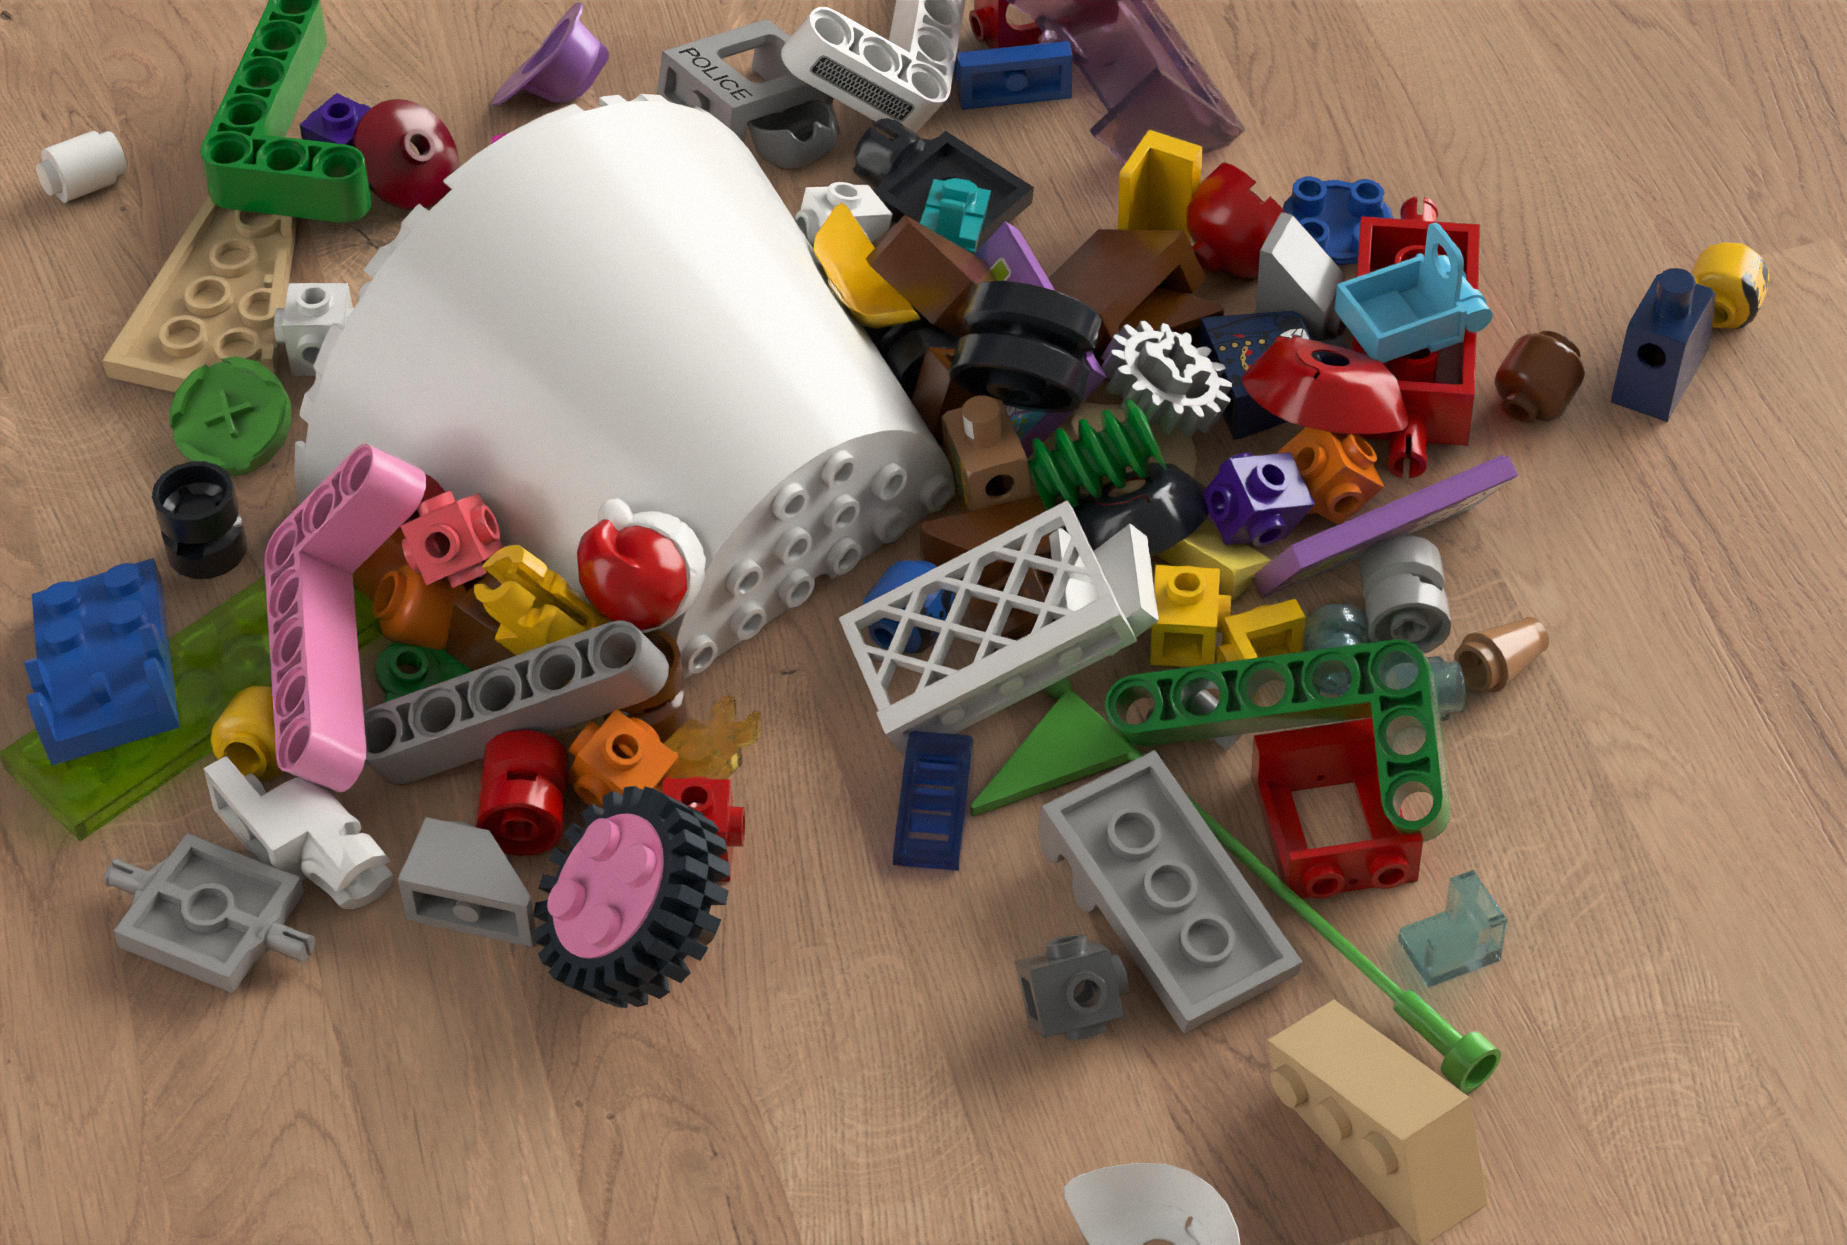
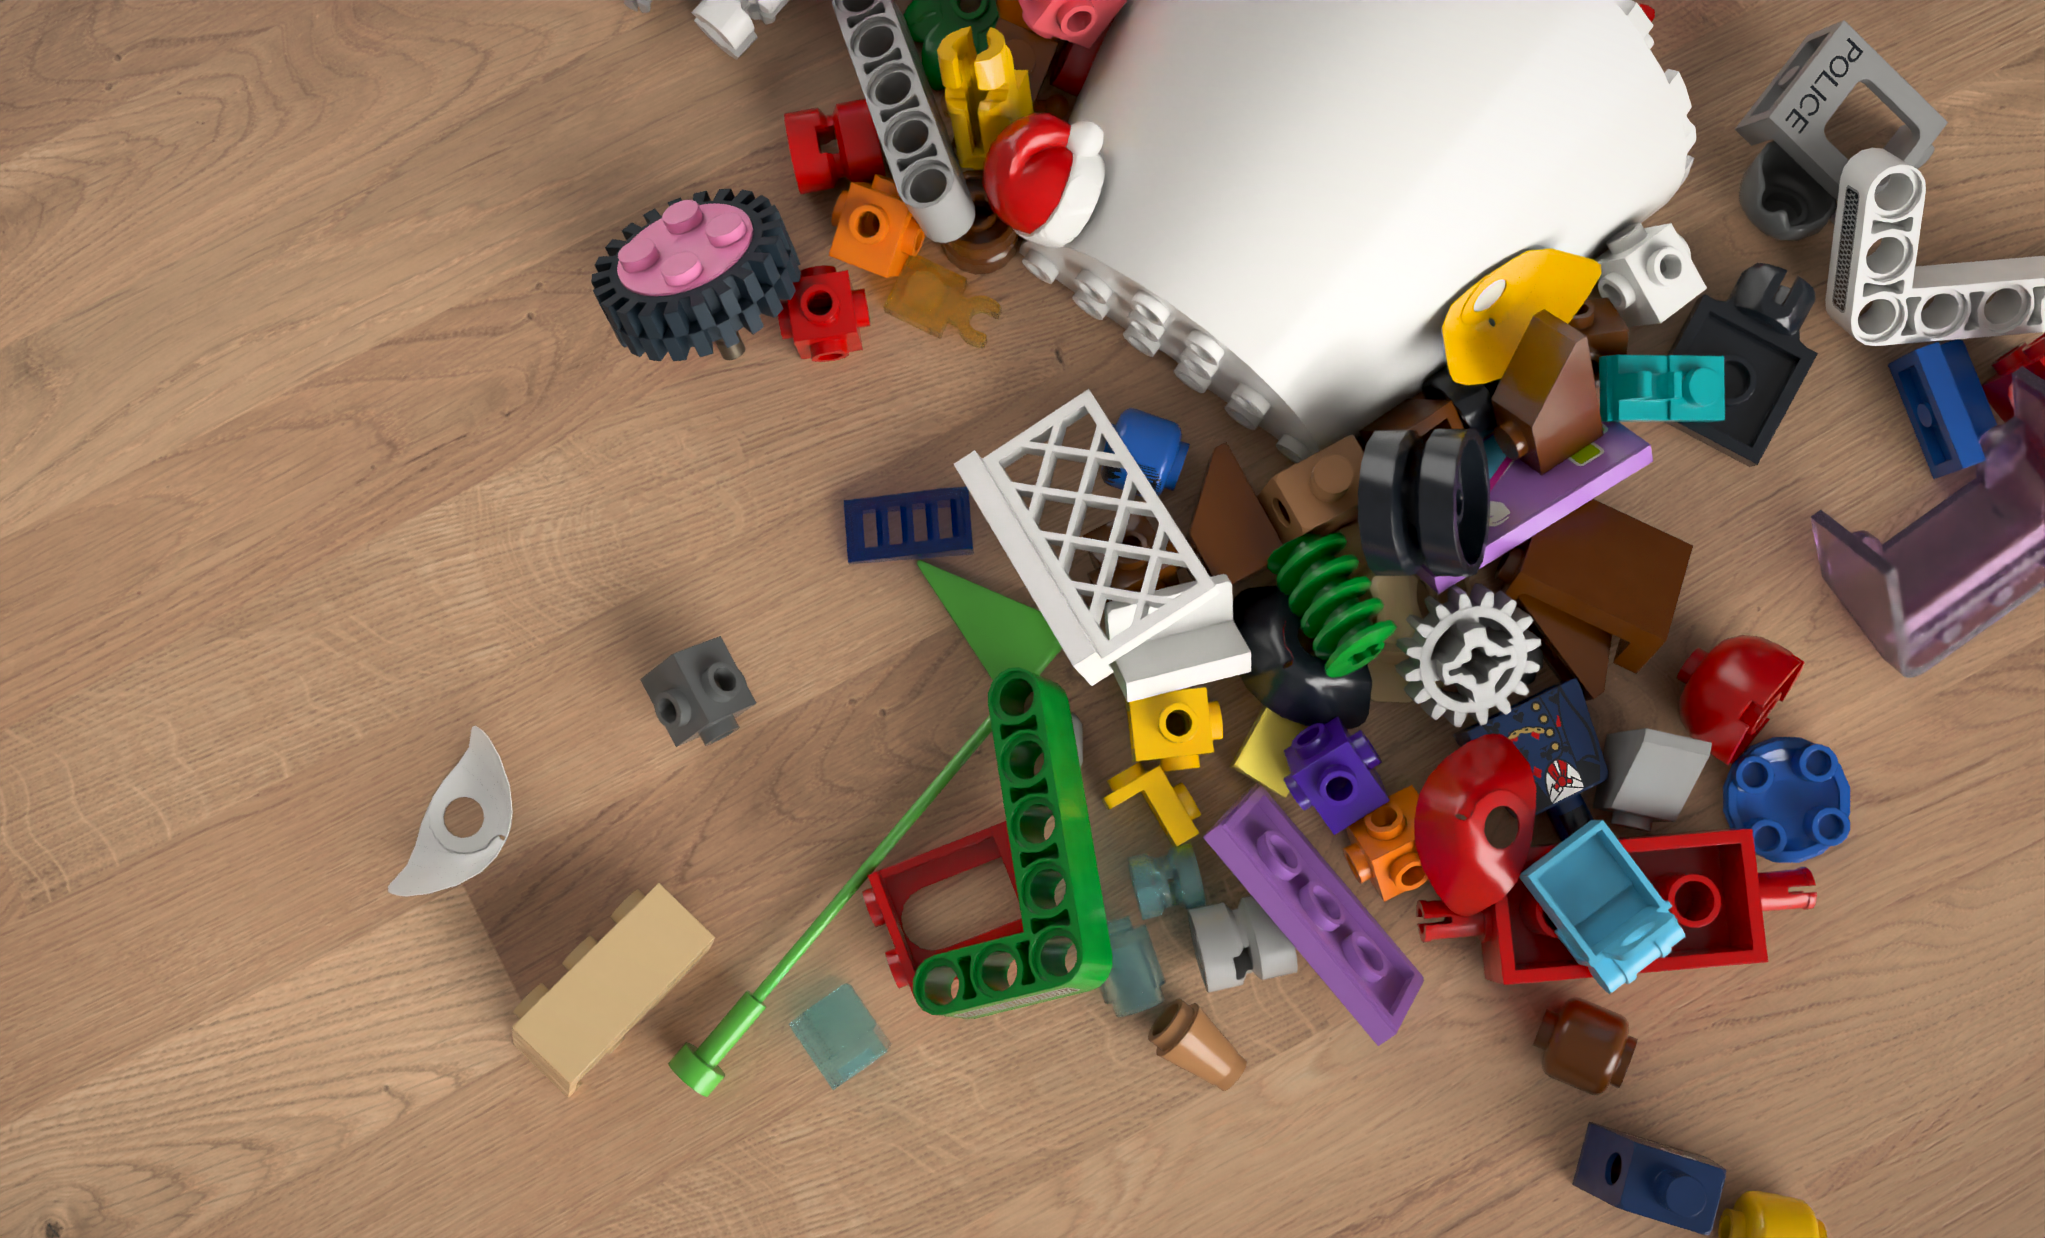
camera: 75 degrees right, 35 degrees up
(465, 884) = (732, 122): light grey slope -> none
(1158, 184) = (1769, 598): yellow panel -> none
(1167, 890) = (827, 763): light grey hinge -> none

